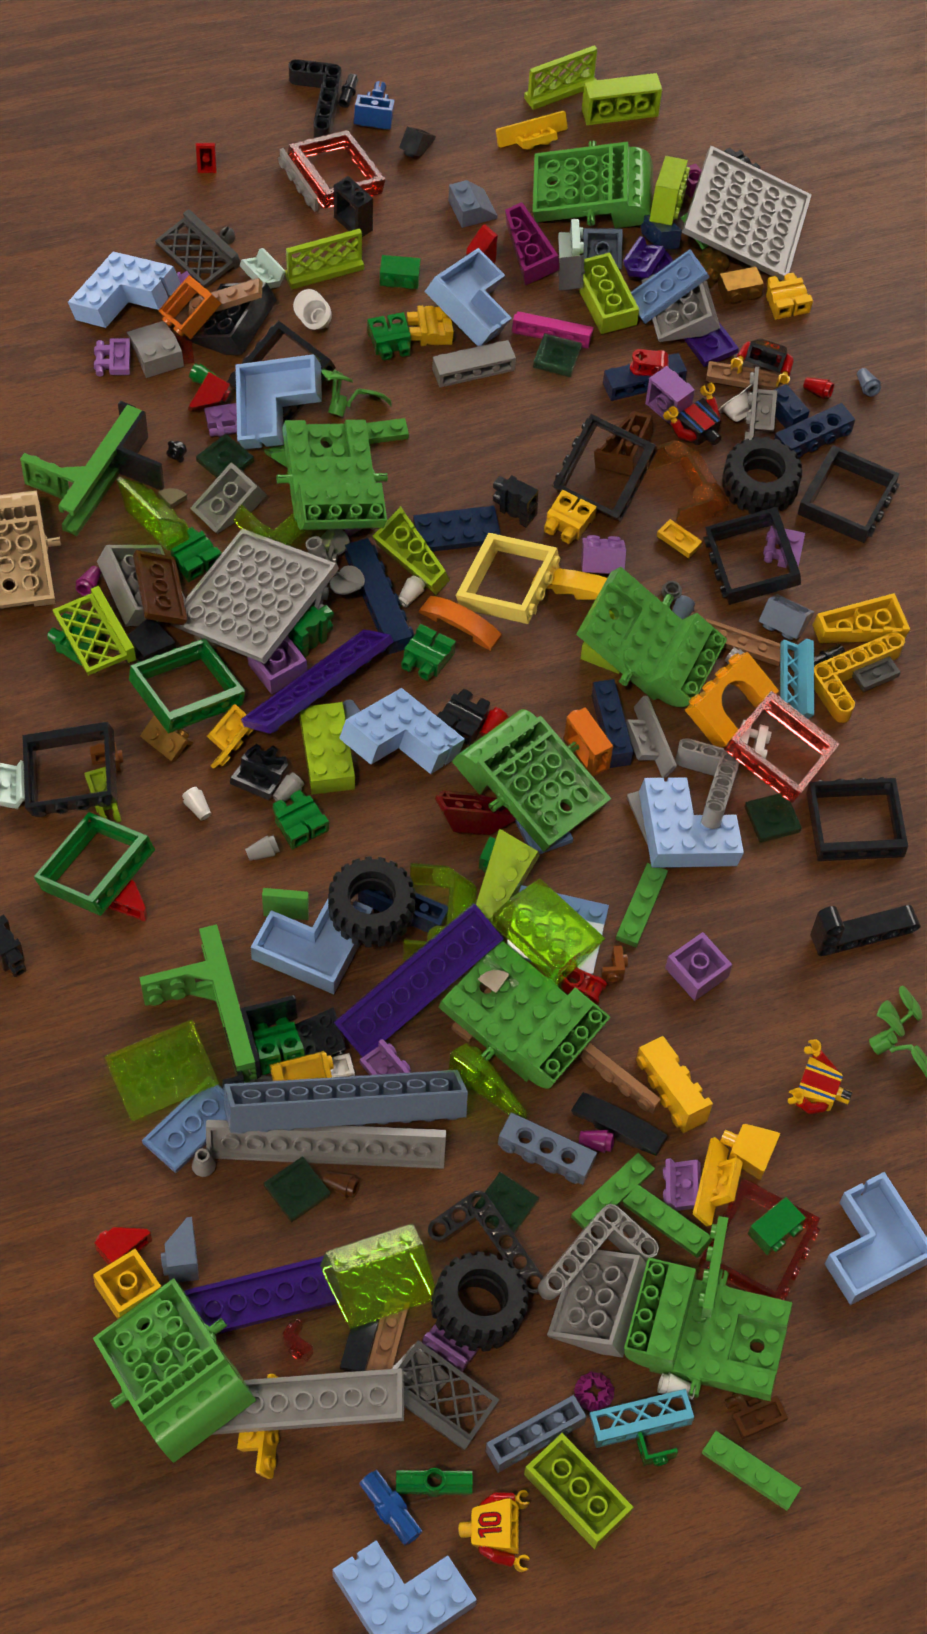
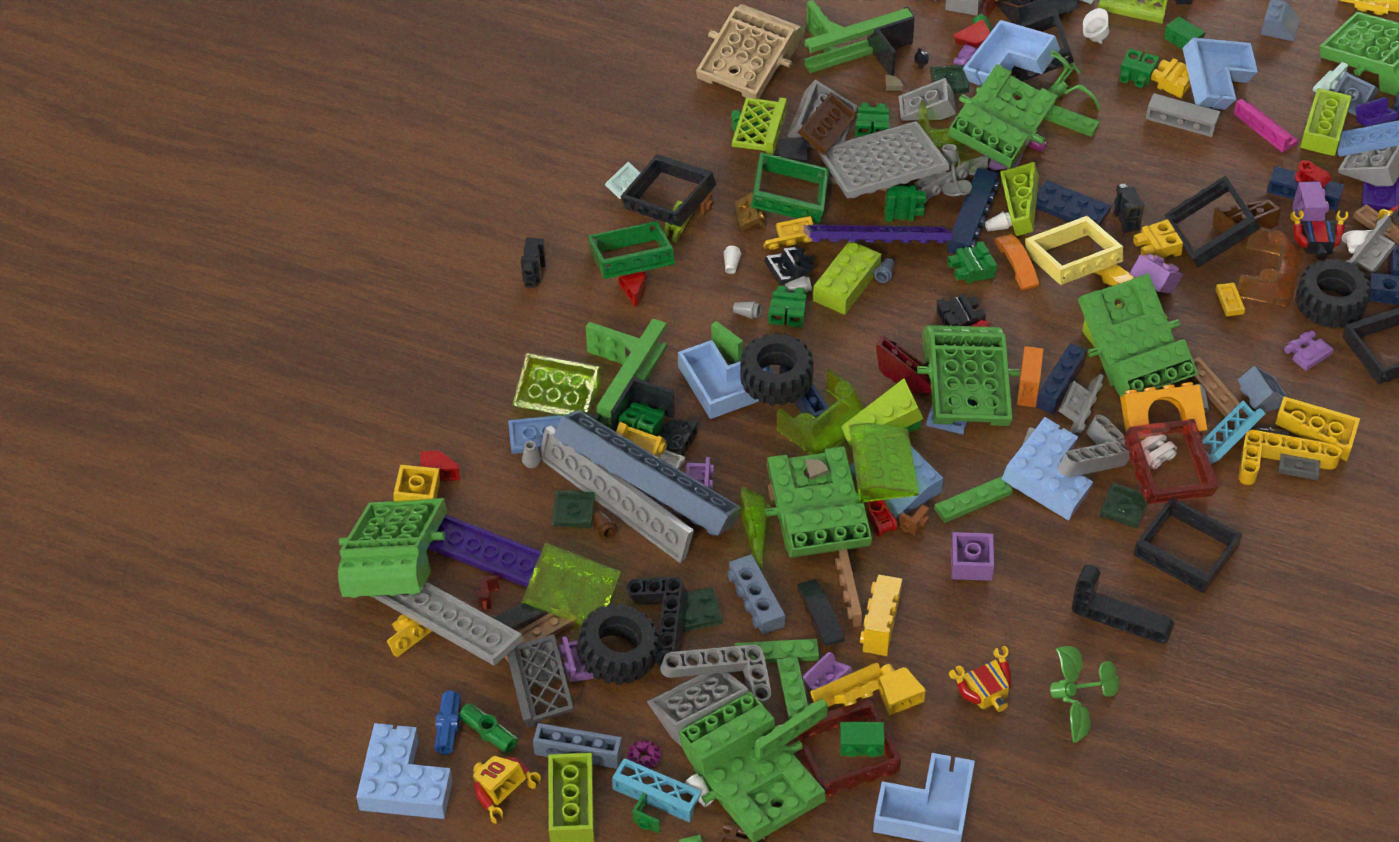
camera: 45 degrees right, 10 degrees down
(88, 580) = (792, 98): magenta cone -> none
(153, 513) = (867, 80): clear neon green slope -> none
(180, 1254) = (465, 491): sand blue slope -> none
(281, 668) = (864, 209): medium lavender brick -> none
(402, 724) = (906, 287): light blue piece -> none
(418, 980) = (767, 437): dark purple plate -> none
(486, 241) = (1260, 47): red slope -> none
(532, 248) = (1295, 69): magenta wedge -> none
(557, 355) = (1251, 142): clear green plate -> none
(571, 272) = (1310, 95): dark grey piece -> none
(598, 1140) = (799, 615): magenta cone -> none
(672, 586) = (1191, 327): dark grey plate -> none
(683, 606) = (1191, 339): sand blue cone -> none
(744, 525) = (1277, 313): black window -> none

